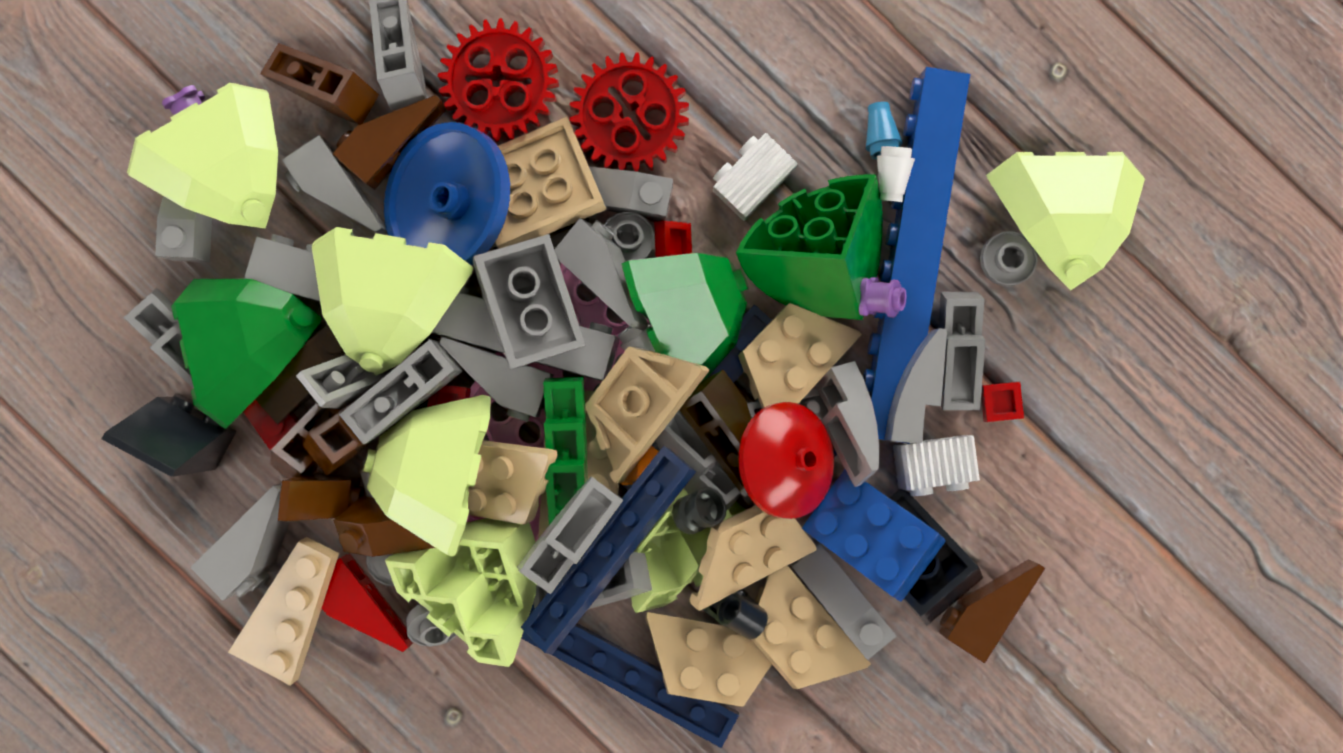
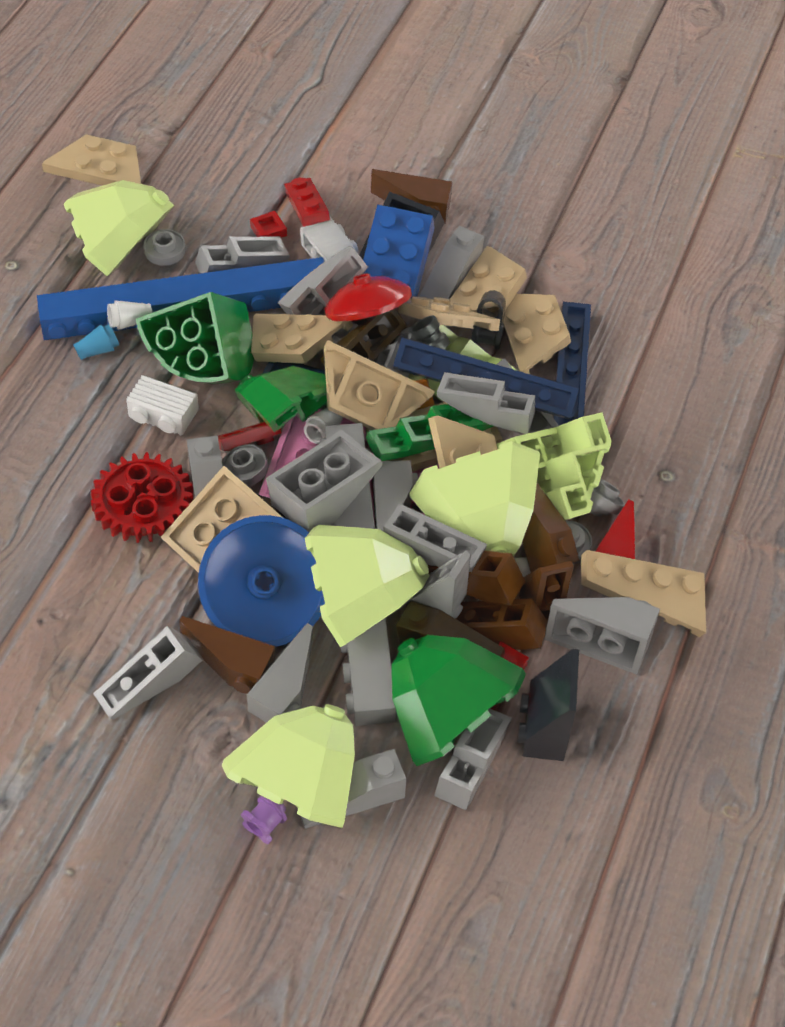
camera: 115 degrees left, 35 degrees down
(321, 83) = (199, 724): reddish brown slope -> none
(502, 47) = (117, 600): red gear -> none
(598, 265) = (276, 450): light grey slope -> none
(881, 297) = (225, 286): medium lavender brick -> none
(918, 386) = (280, 254): light grey slope -> none
(1021, 462) = (306, 201): none -> red plate
(1201, 228) = (95, 161): none -> tan wing

